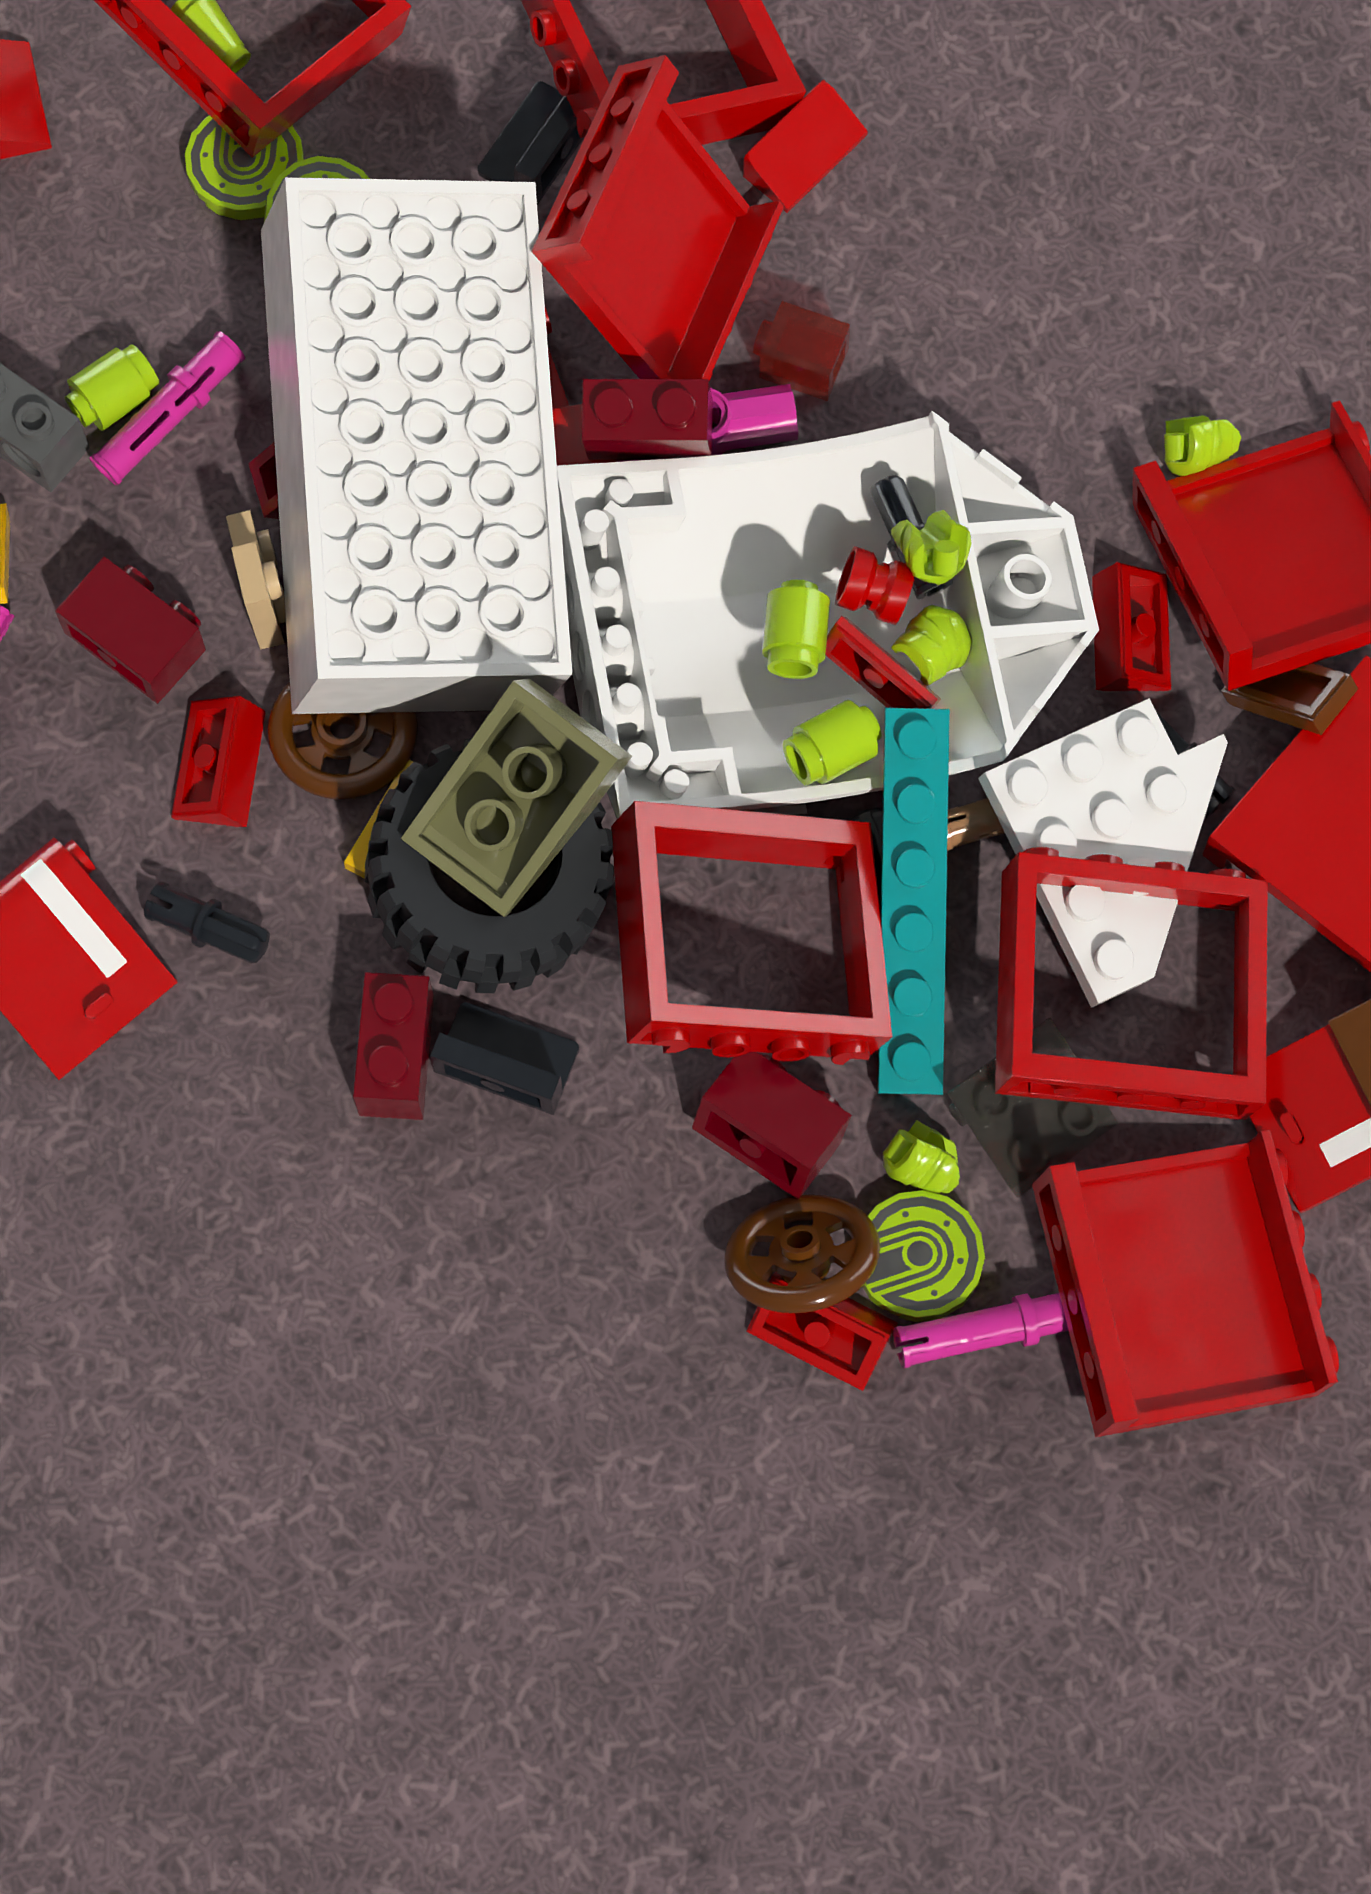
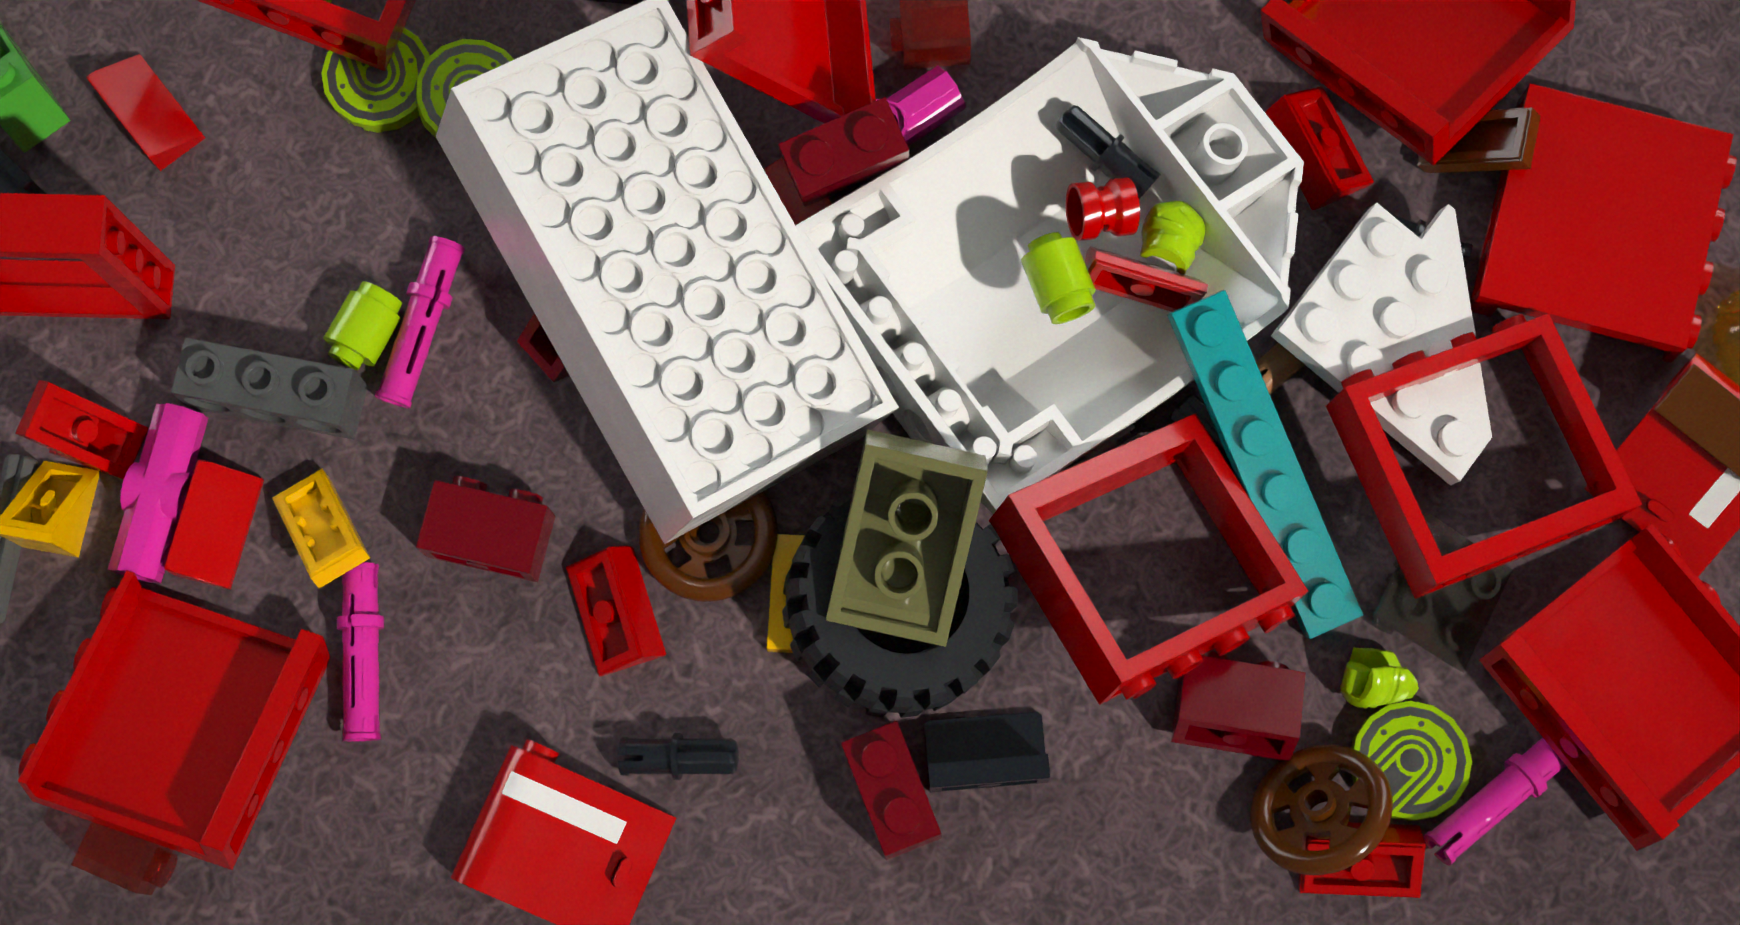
camera: 20 degrees left, 5 degrees up
(258, 578) = (581, 443): tan plate -> none
(832, 743) = (1138, 362): lime brick -> none
(936, 550) = (1140, 155): lime arm -> none

